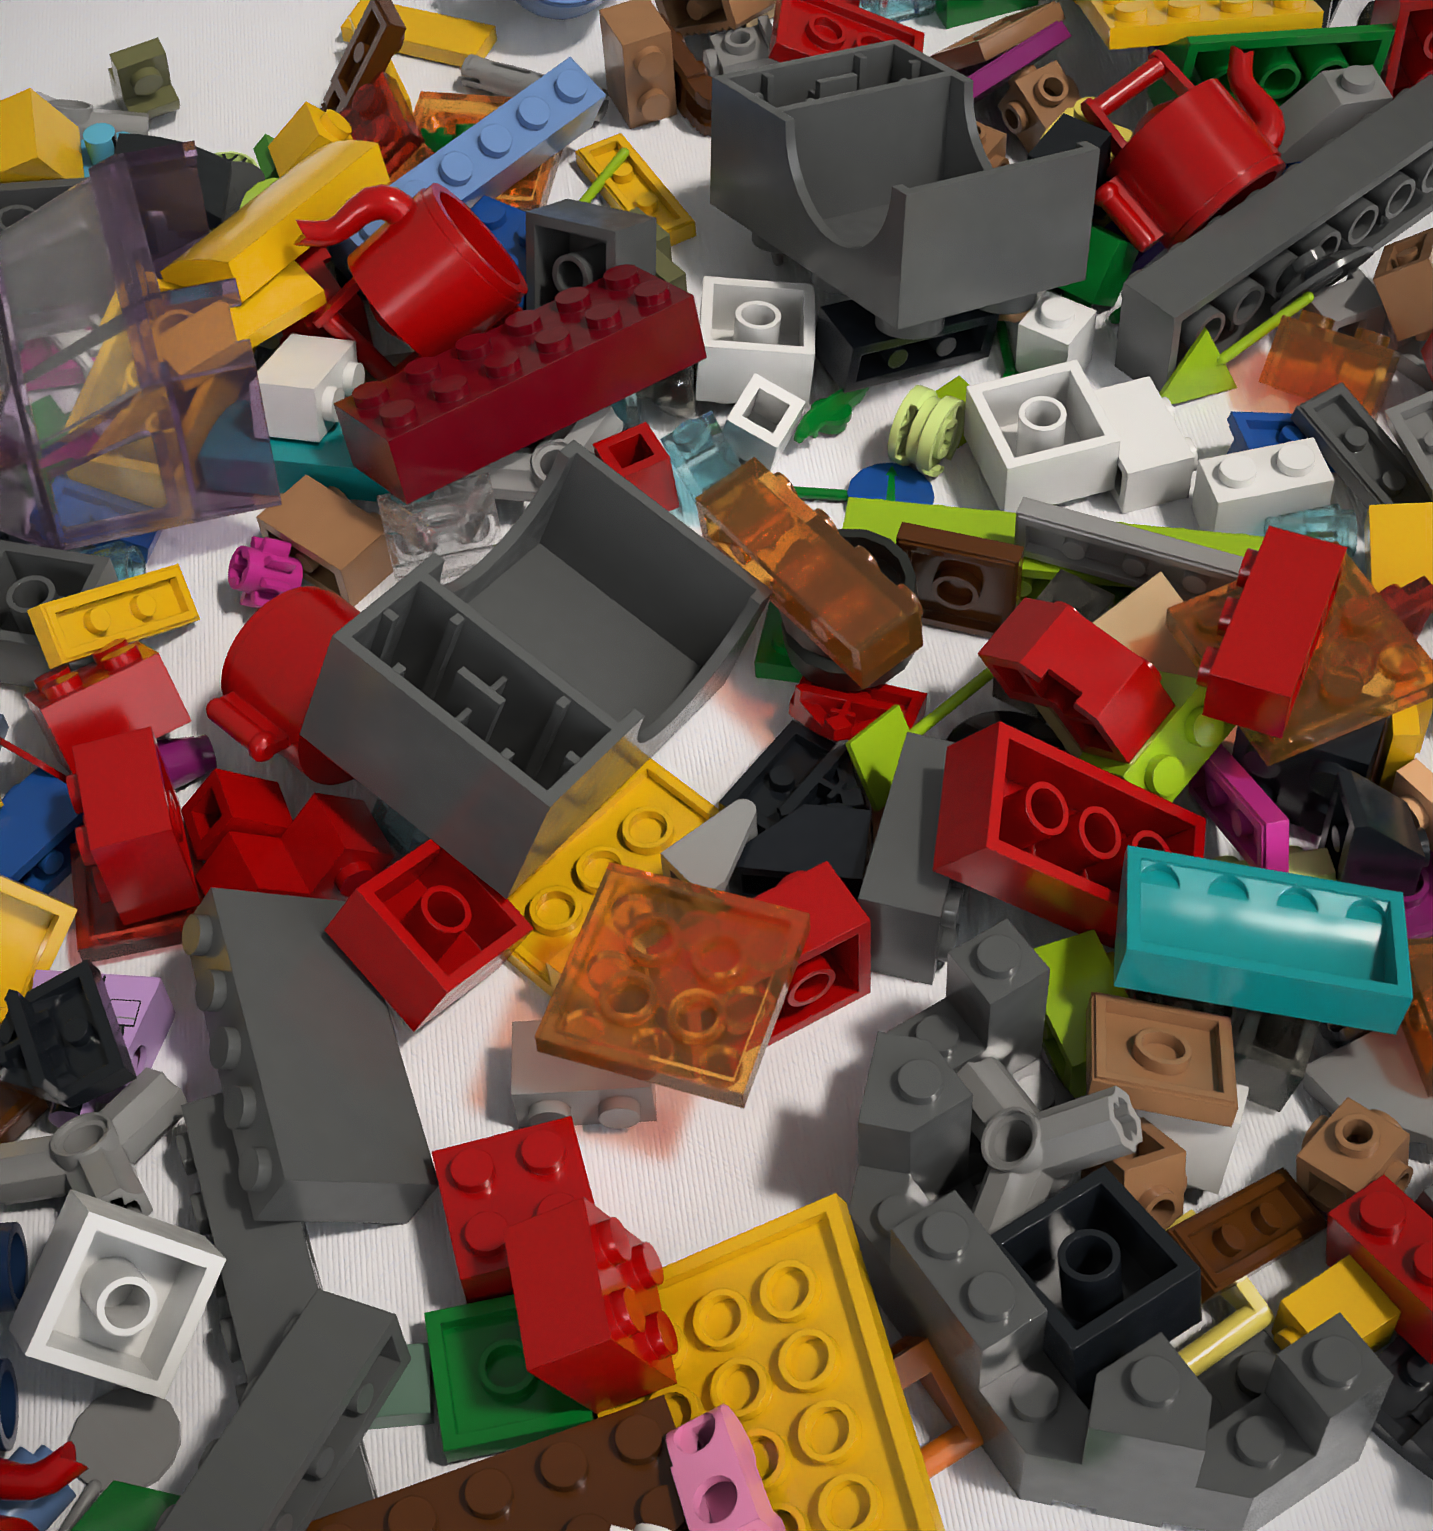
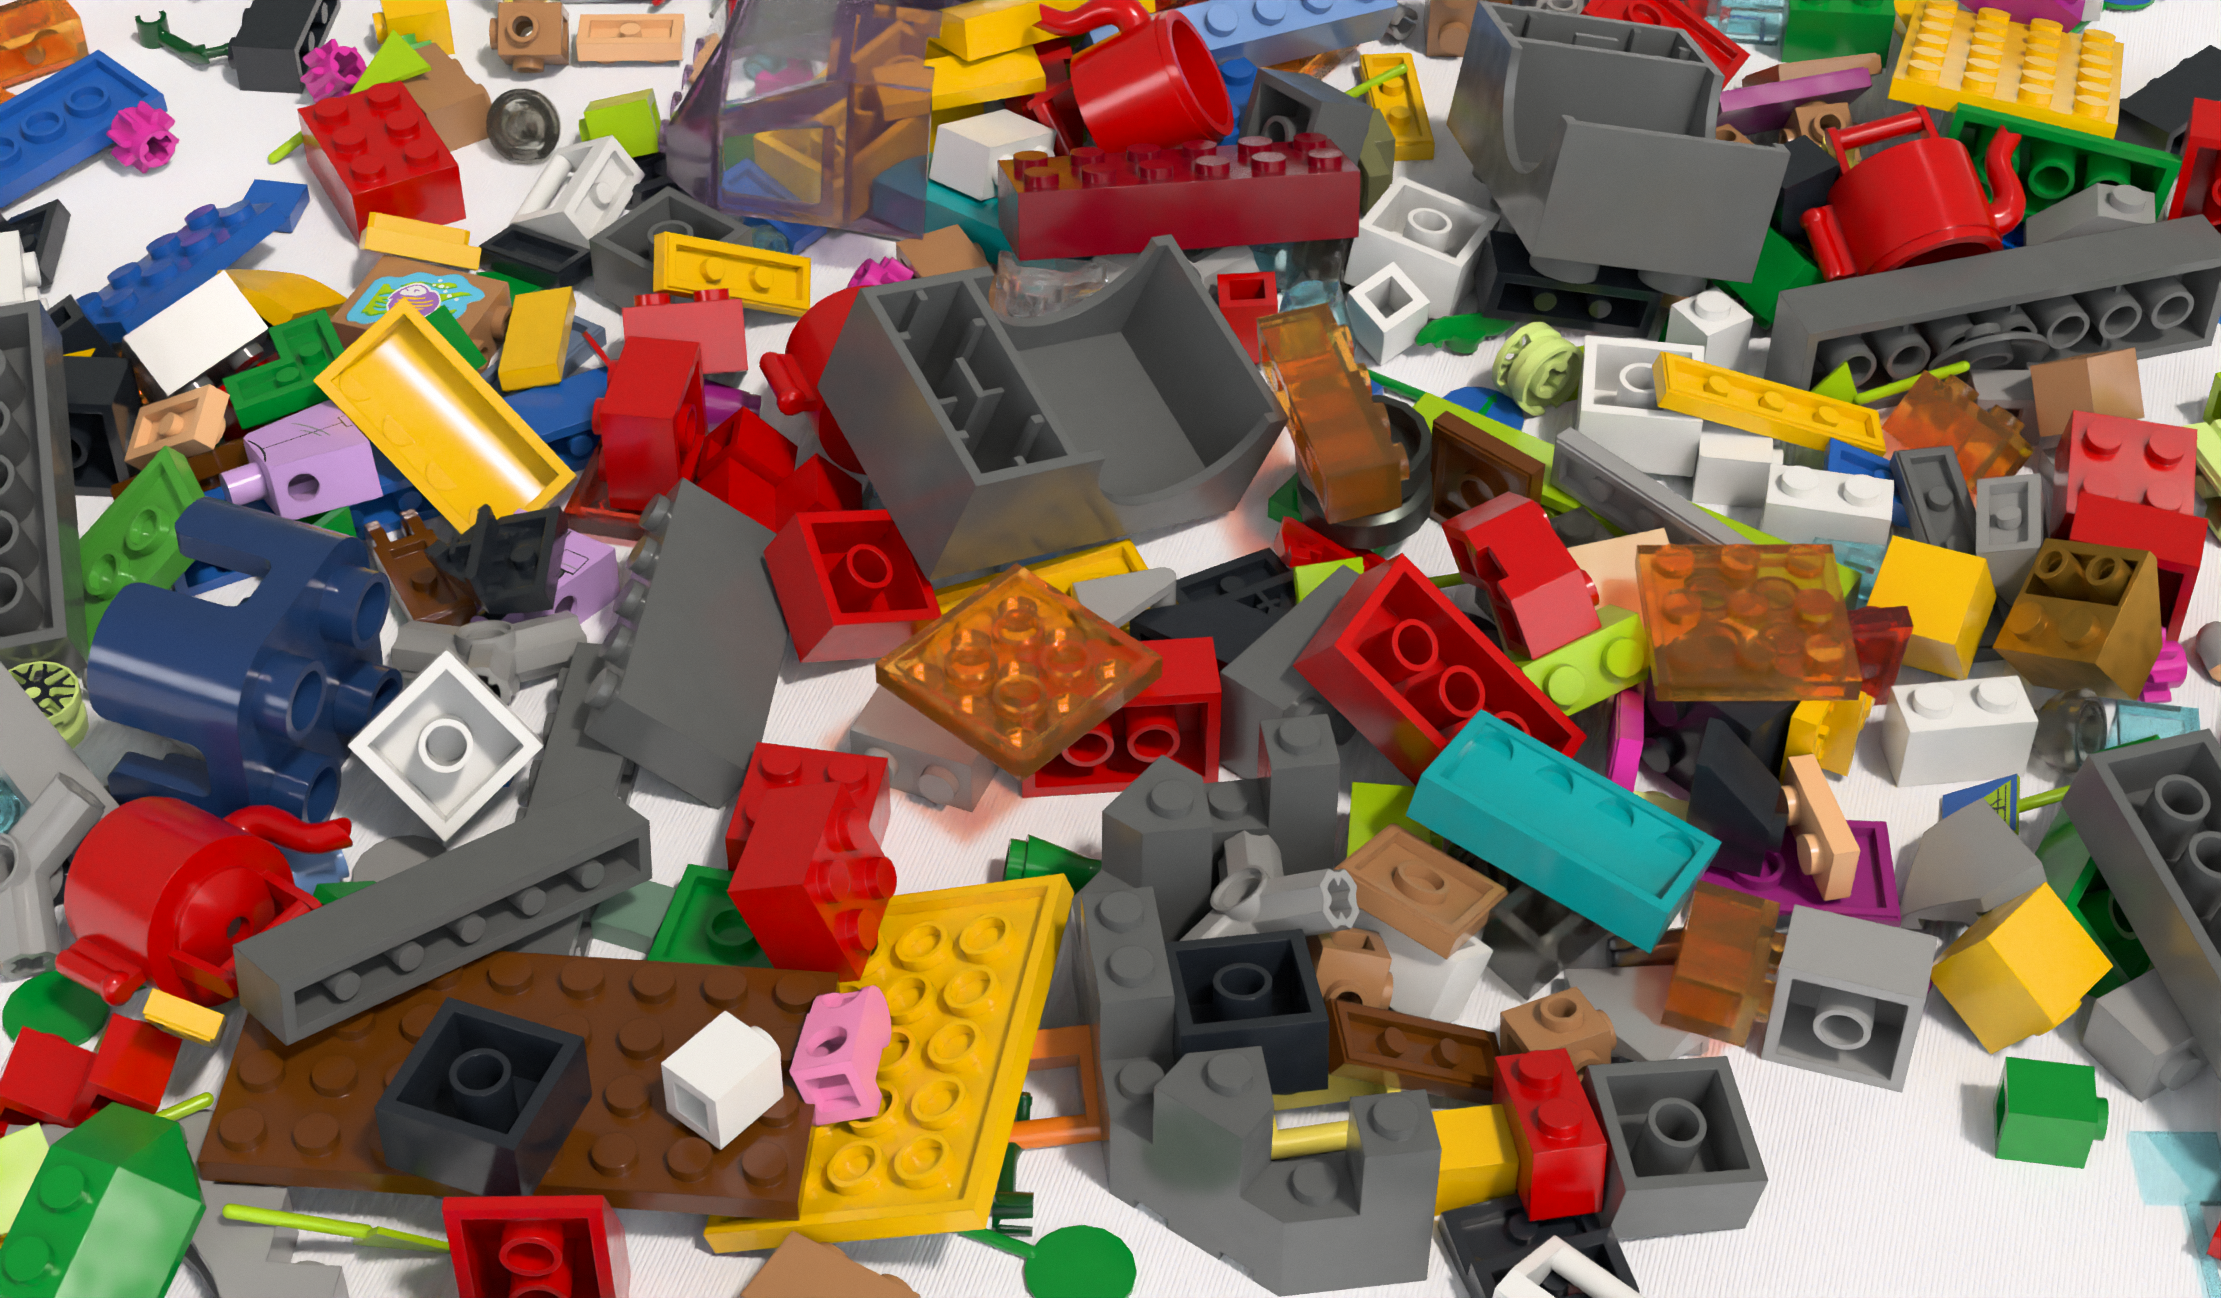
camera: 20 degrees right, 10 degrees down
(773, 1165) = (1041, 858): none -> green cone
(1159, 402) = (1763, 405): none -> yellow tile
(1271, 631) = (1708, 579): red brick -> none

